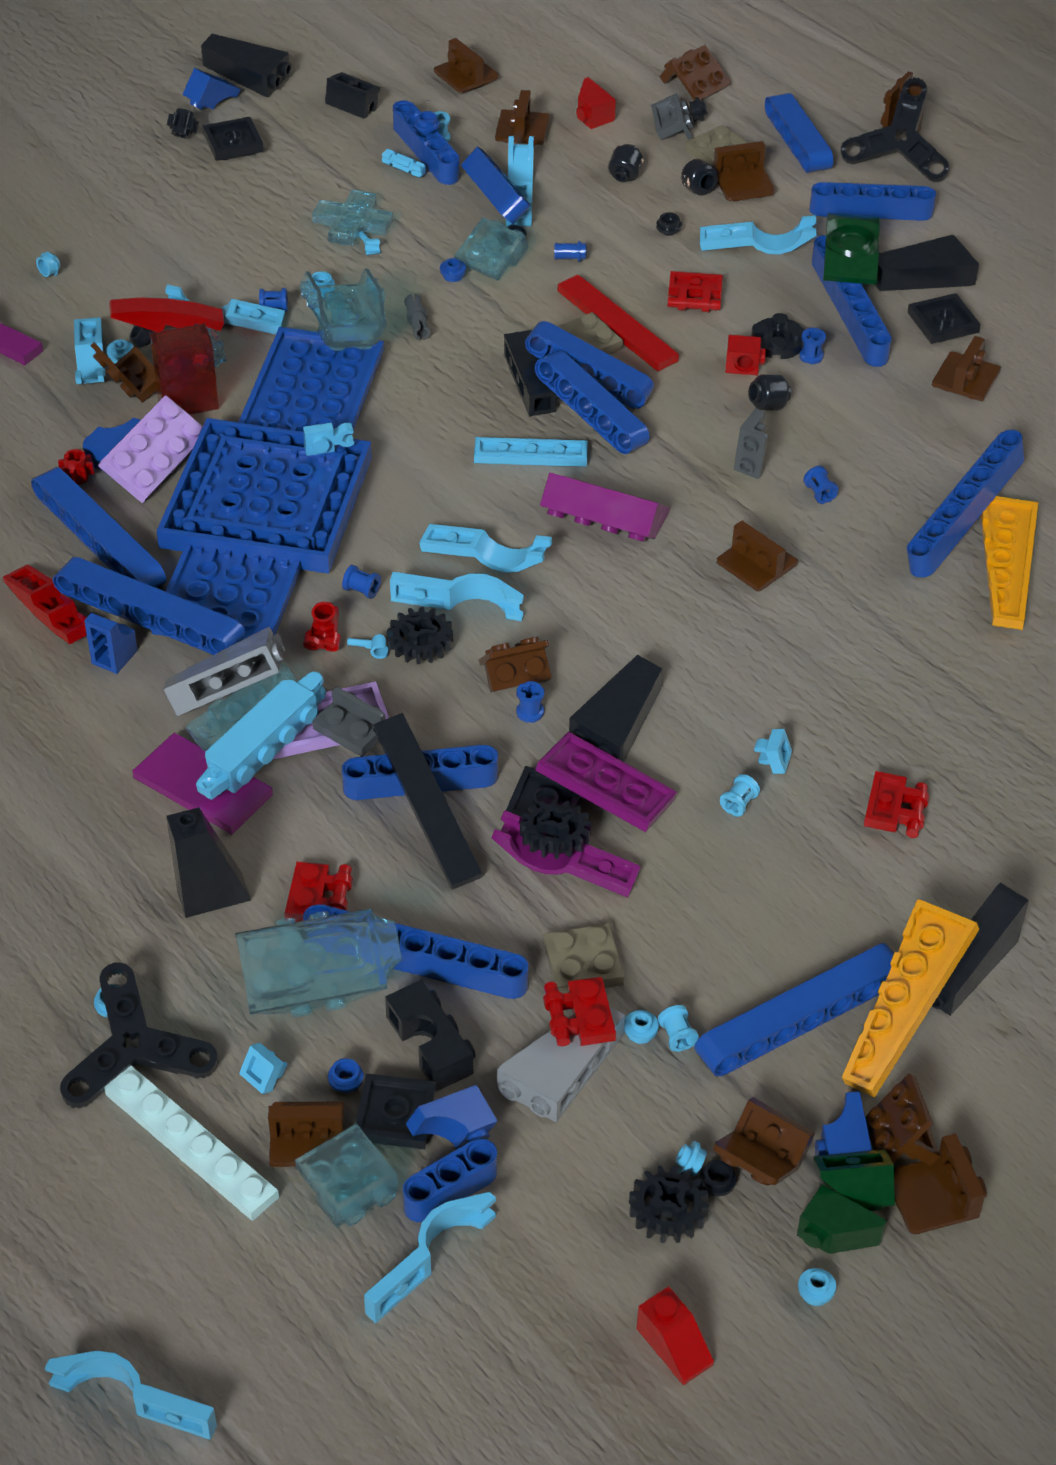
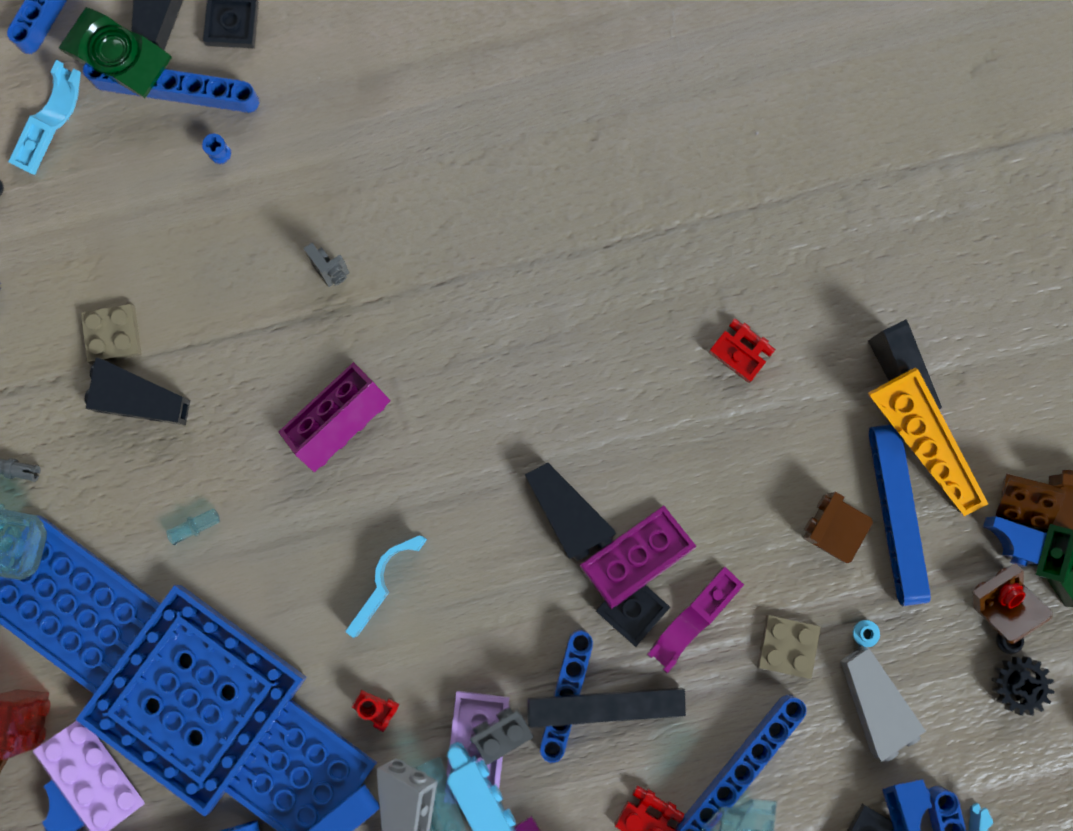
camera: 65 degrees left, 35 degrees up
(322, 438) = (162, 631): medium azure plate -> none
(361, 581) = (333, 656): blue bush -> none
(377, 645) = (411, 670): medium azure hand -> none
(419, 1012) = (797, 790): black arch -> none
(420, 635) = (409, 623): black gear -> none
(433, 446) = (193, 526): none -> clear light blue axle
(478, 544) = (337, 538): medium azure piece -> none
(516, 665) = (481, 571): reddish brown bracket -> none
(530, 451) = (234, 445): medium azure tile -> none
(530, 697) = (520, 577): blue bush -> none
(555, 829) = (689, 620): black gear -> none
(590, 1010) = (863, 674): red plate -> none
(592, 402) = (210, 373): blue beam -> none
(618, 378) = (162, 354): blue beam -> none
(633, 334) = (101, 295): red tile -> none
(678, 1028) = (881, 609): medium azure bush -> none
(690, 1158) = (992, 653): medium azure plate -> none
(695, 285) = (88, 205): red plate -> none
(739, 795) = (688, 461): medium azure bush -> none
(744, 355) = (201, 211): red brick -> none
(749, 949) = (837, 527): none -> reddish brown bracket
(755, 558) = (448, 324): reddish brown bracket -> none
(769, 392) = (259, 214): black head -> none
(773, 1138) = (1011, 595): none -> red plate
(775, 751) = (658, 413): medium azure tile -> none
(779, 336) = (174, 162): black plate -> none
(821, 484) = (387, 229): blue bush -> none
(965, 503) = (465, 118): blue beam -> none
(968, 372) = (308, 41): reddish brown bracket -> none
(1008, 550) = (519, 121): light orange wing -> none

